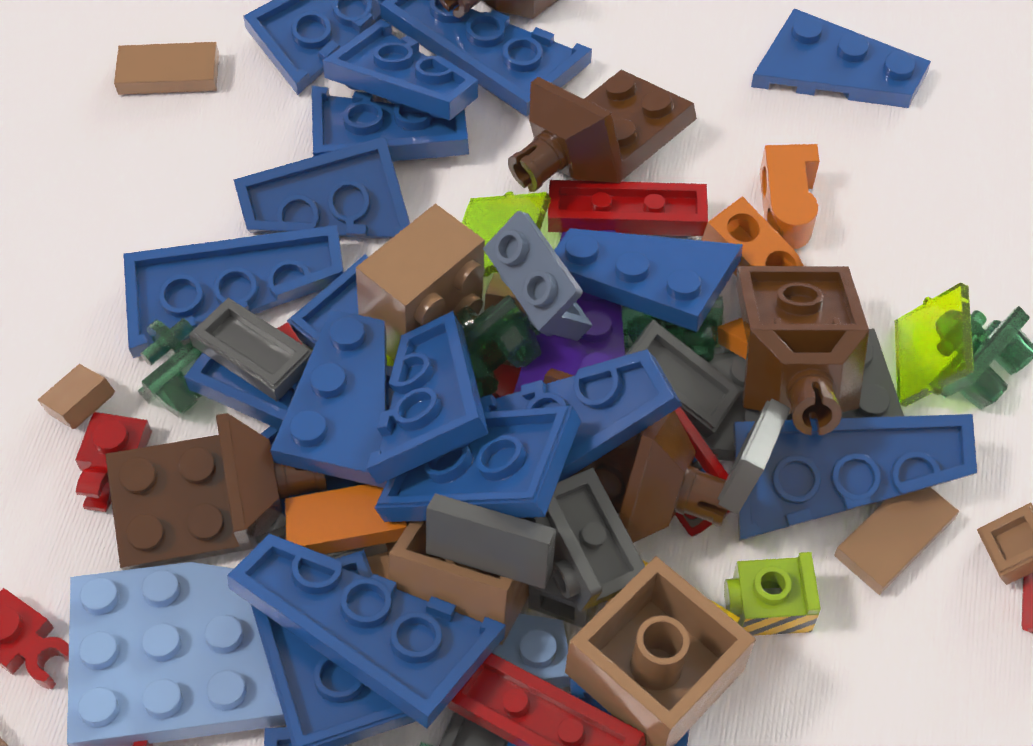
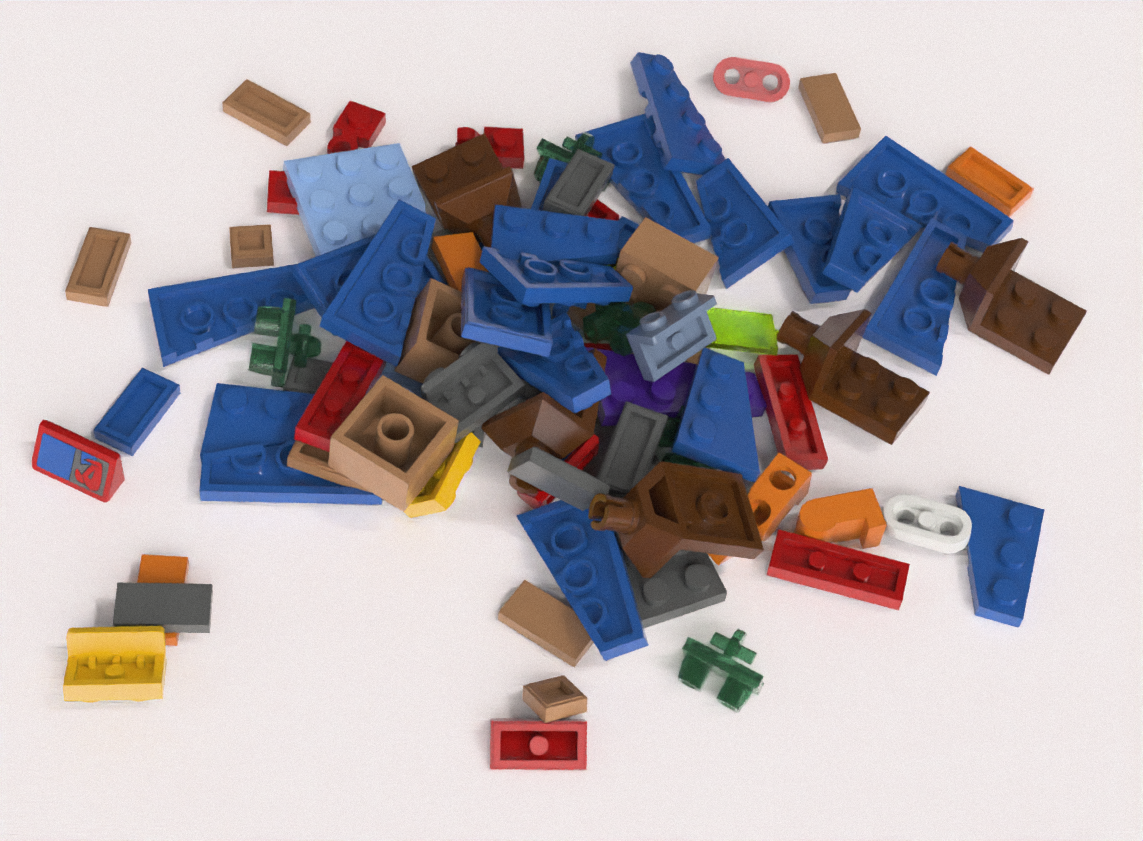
camera: 70 degrees right, 5 degrees down
(76, 396) = (532, 117): medium nougat tile -> none
(98, 136) = (751, 79): none -> plate
(127, 229) = (679, 125): none -> blue wing
(490, 540) = (446, 322): dark grey tile -> none
(771, 614) = (475, 540): lime brick -> none
(800, 116) = (928, 521): none -> white plate
(854, 208) = (838, 569): none -> red plate
(933, 345) = (712, 624): clear neon green piece -> none

